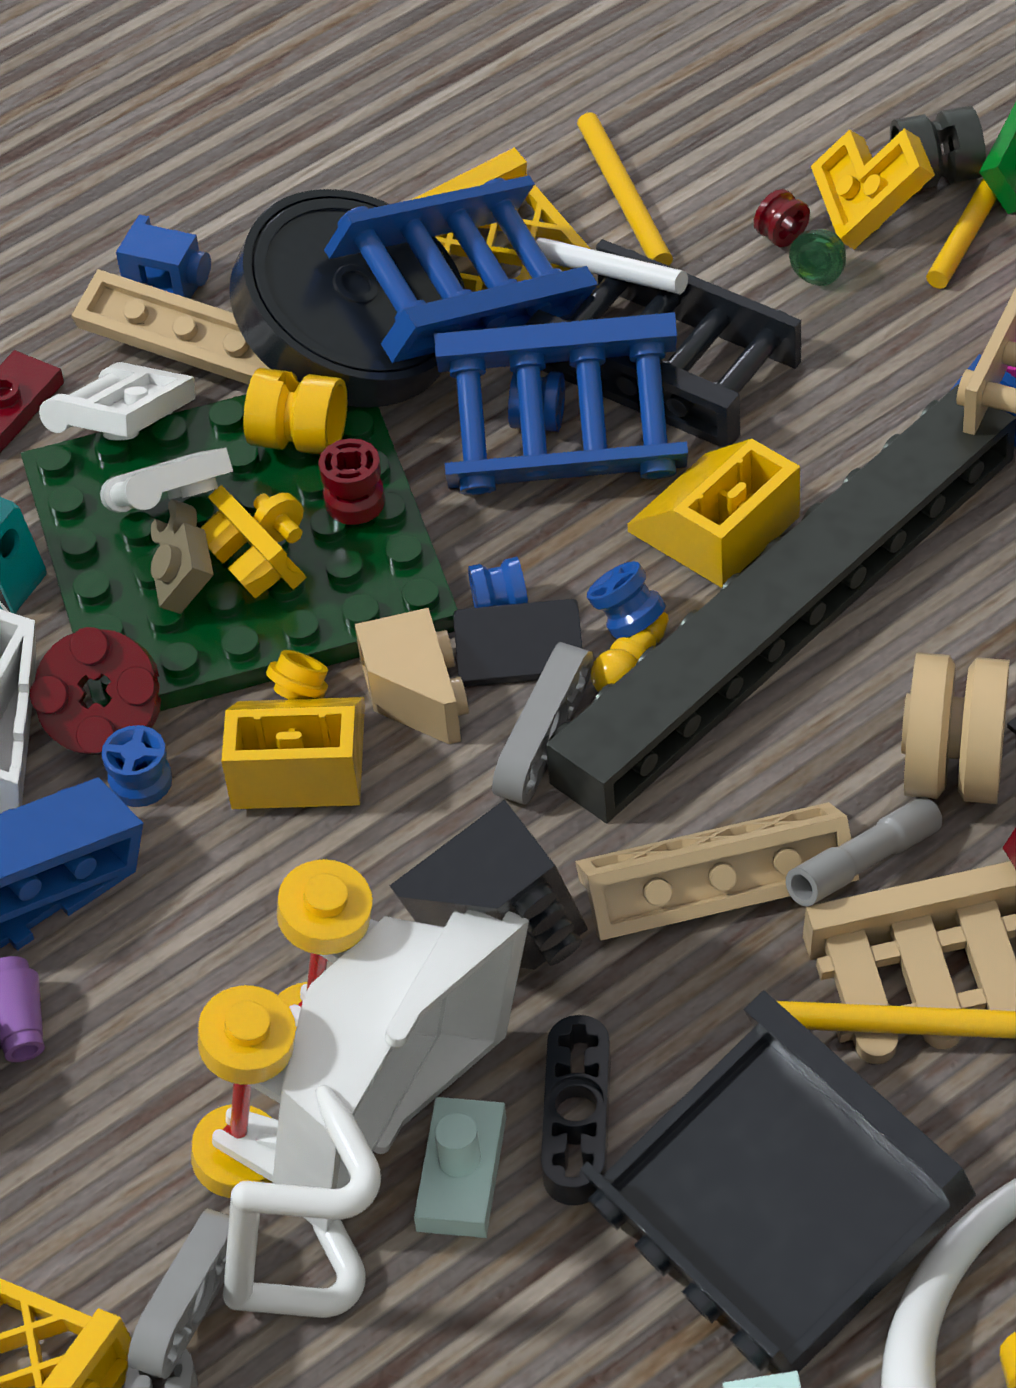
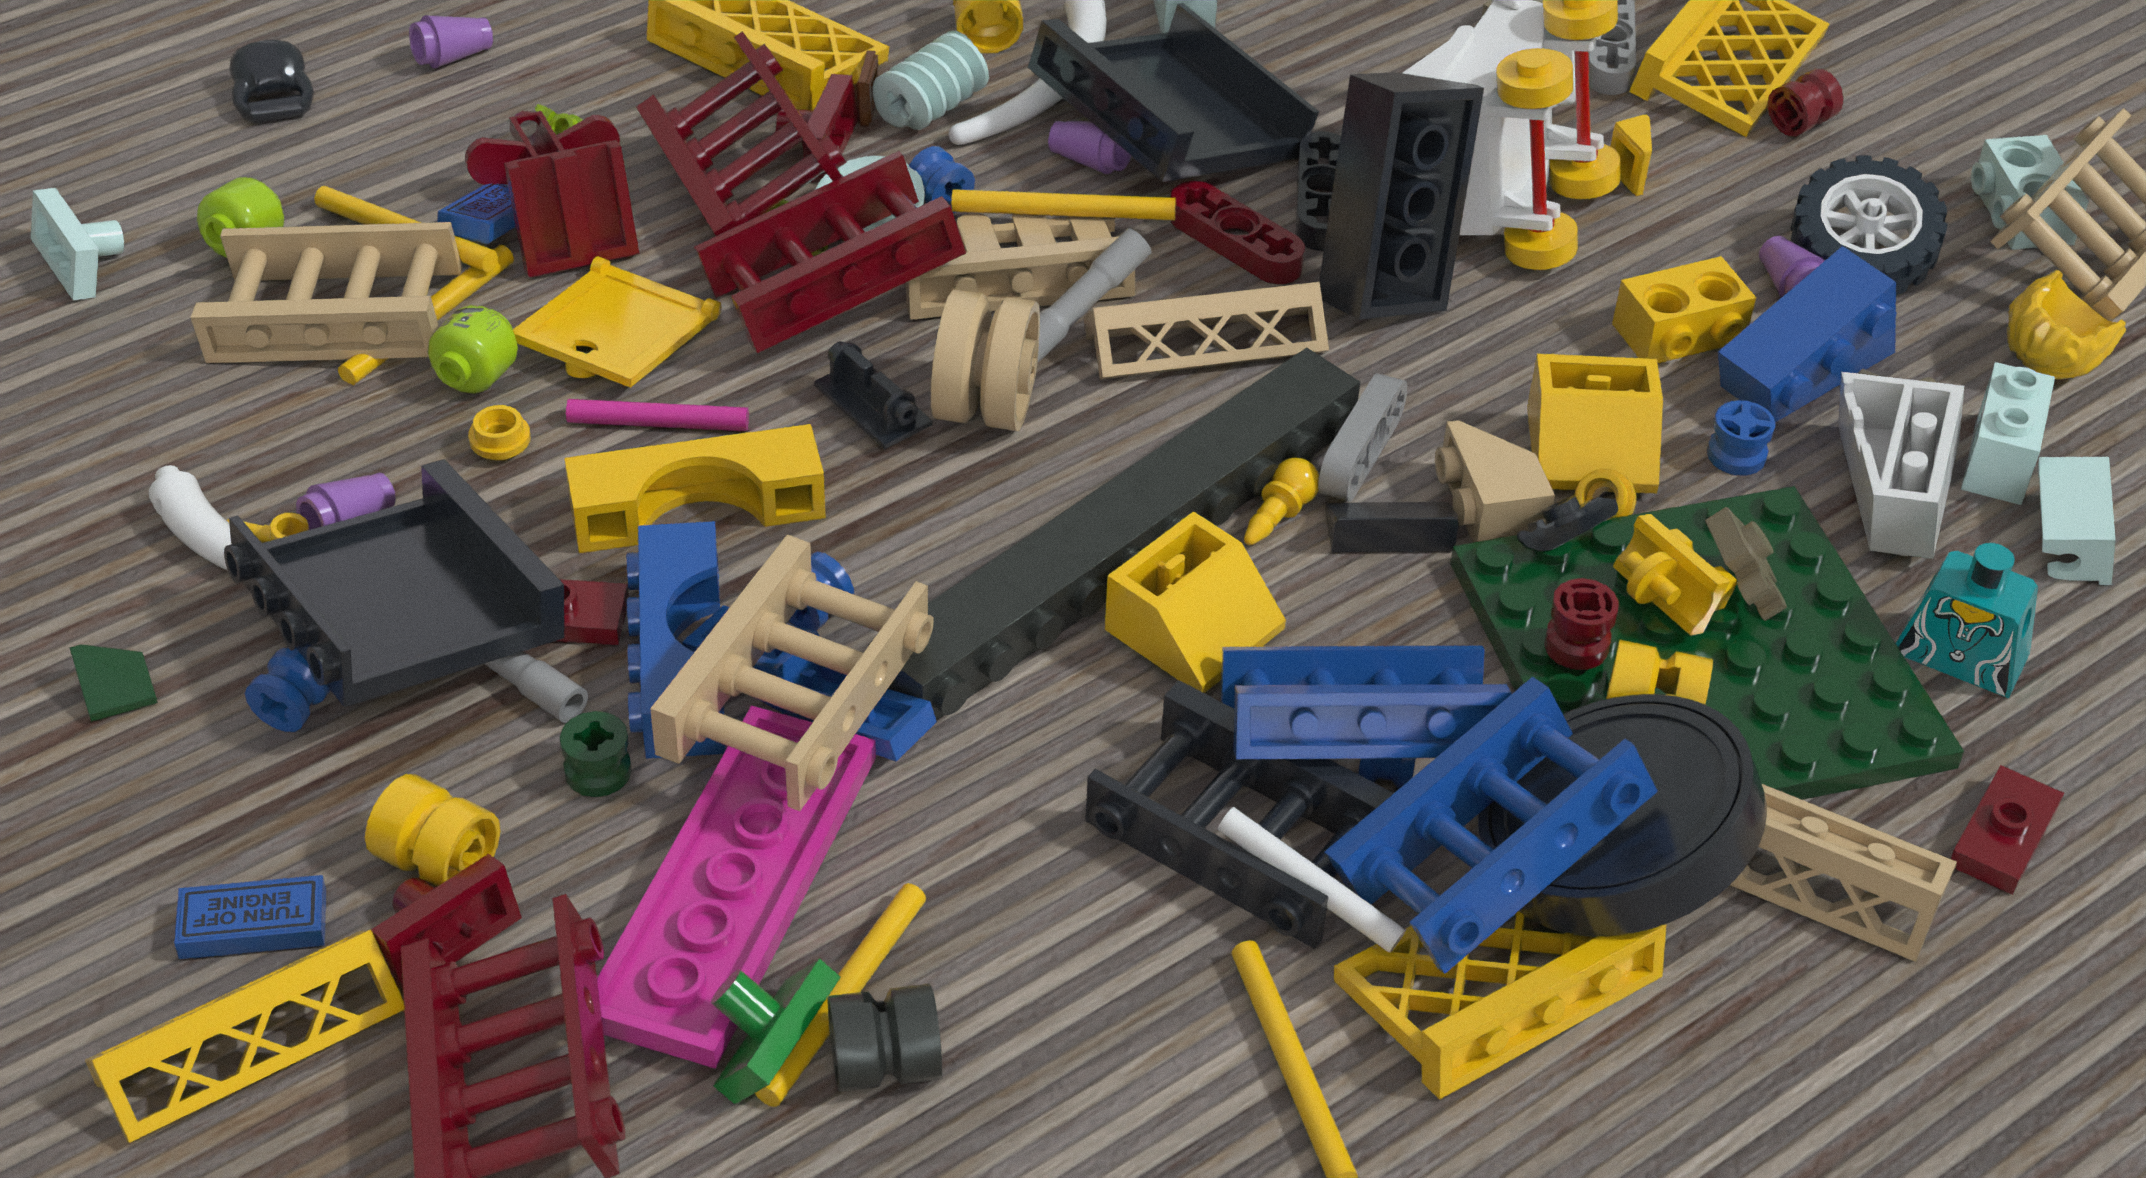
camera: 175 degrees right, 5 degrees down
(90, 655) = (1788, 474): dark red plate -> none
(119, 401) = (1850, 749): white plate -> none
(161, 924) = (1683, 310): none -> yellow brick
(163, 258) = (1871, 972): blue brick -> none
(168, 1185) = (1633, 143): none -> yellow slope
(179, 477) = (1763, 613): white plate -> none
(181, 1298) = (1606, 71): light grey beam -> none
(343, 612) = (1565, 521): none -> black piece
(498, 584) = (1415, 556): blue wheel -> none
(626, 600) = (1290, 515): blue wheel -> none
(670, 1000) = (1265, 252): none -> dark red beam
(781, 217) = (1094, 972): dark red bush -> none
(818, 256) = (1054, 912): clear green plate -> none
(868, 190) = (992, 978): yellow plate -> none

